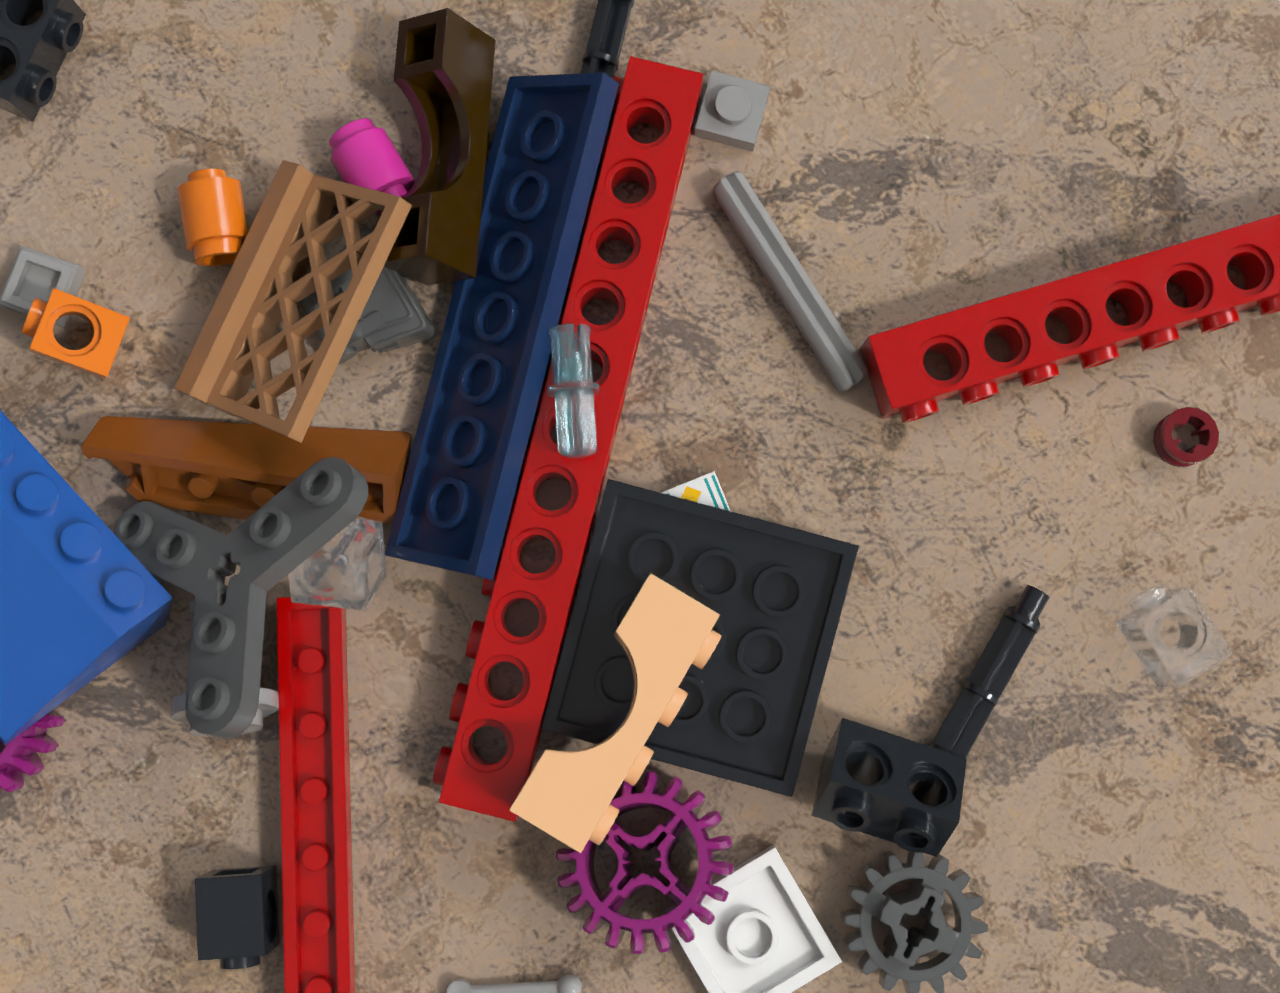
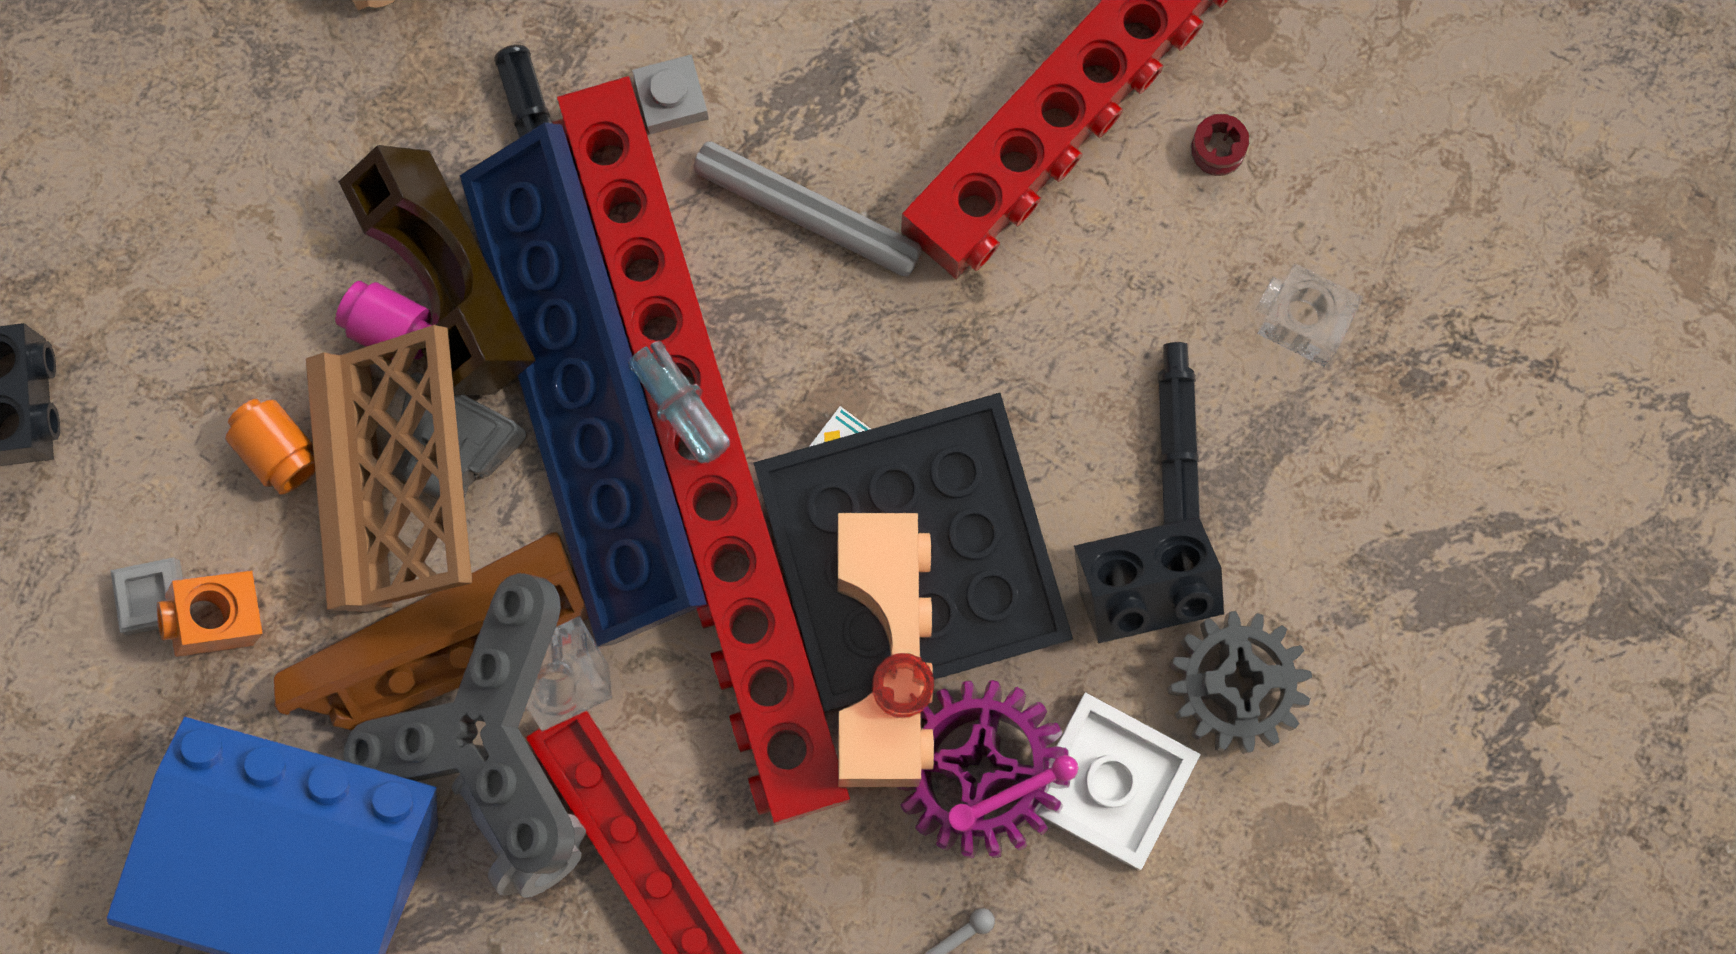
camera: 30 degrees left, 5 degrees down
(601, 901) = (964, 817): none -> dark pink hinge
(634, 762) = (920, 675): none -> clear red bush

